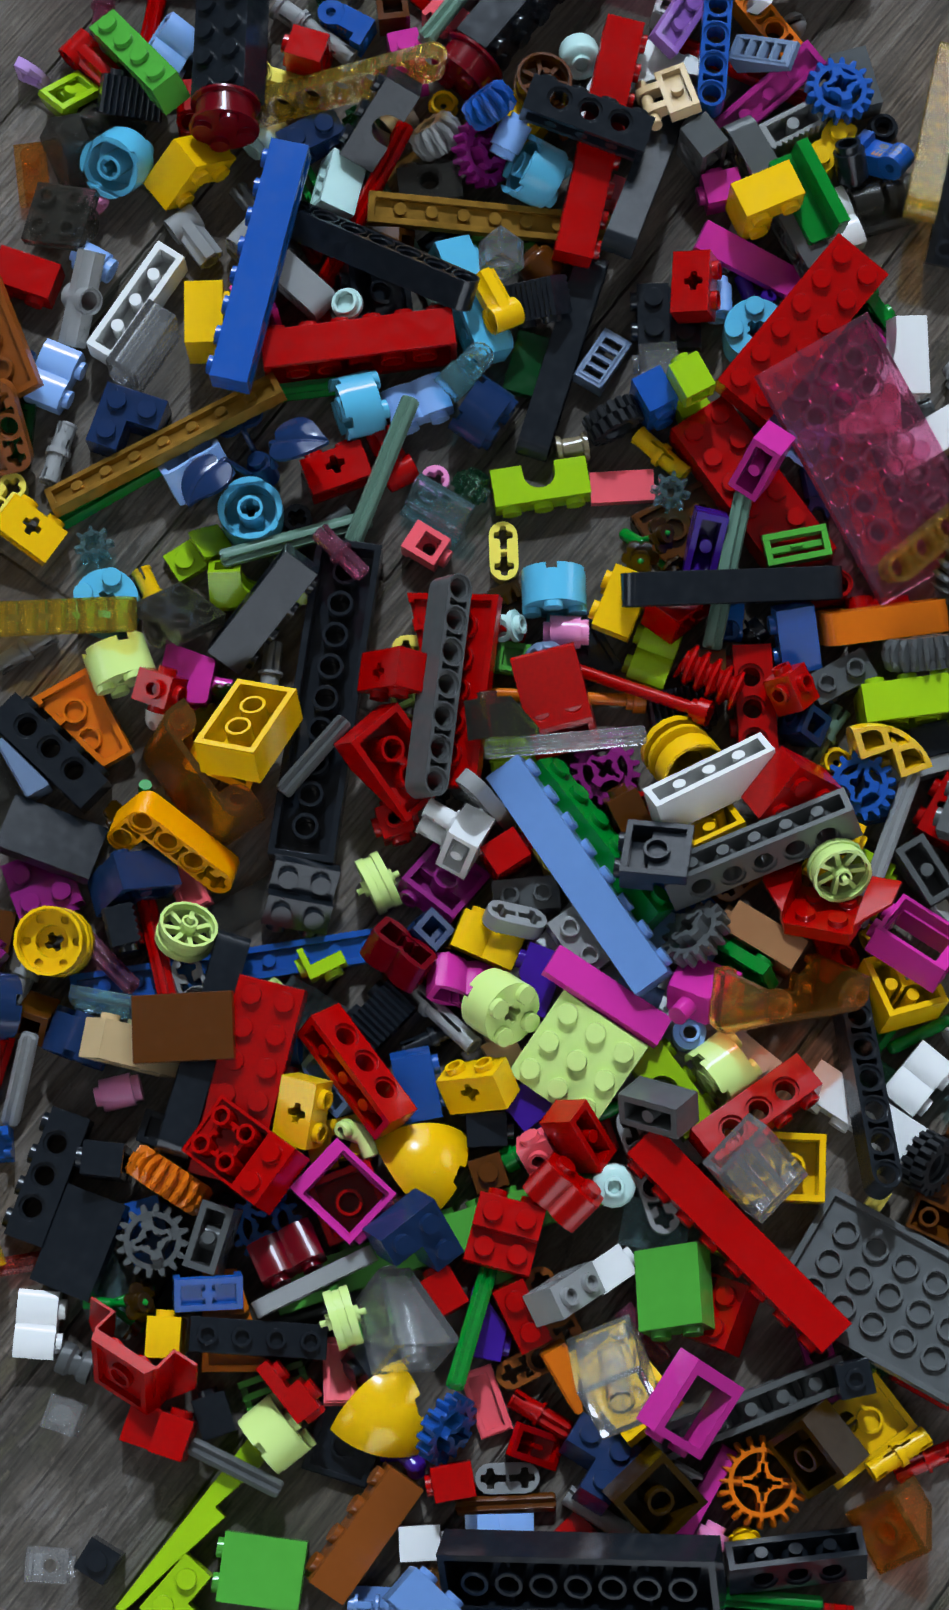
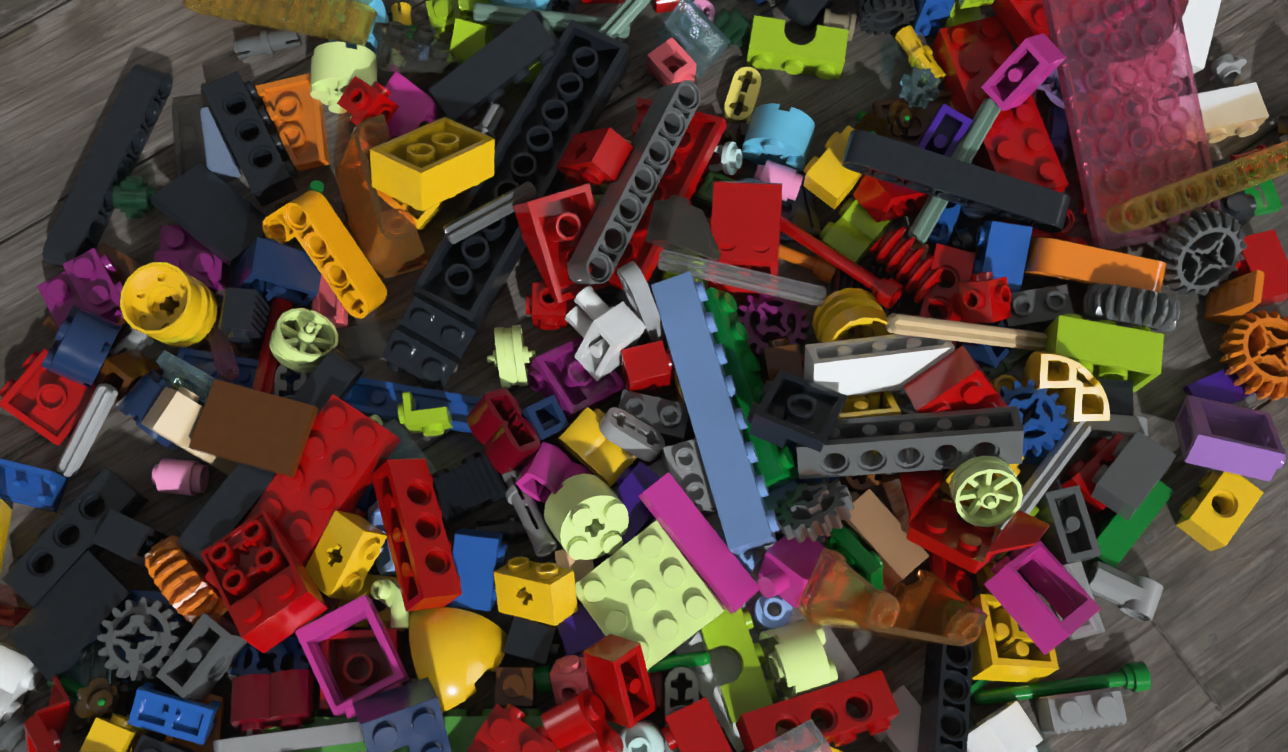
camera: 15 degrees right, 5 degrees down
(340, 552) = (586, 36): clear pink axle -> none
(621, 487) = (872, 74): coral tile -> none
(658, 1107) = (715, 679): dark grey brick -> none
(783, 730) = (965, 332): none -> tan axle
(824, 542) = (1033, 173): bright green tile -> none

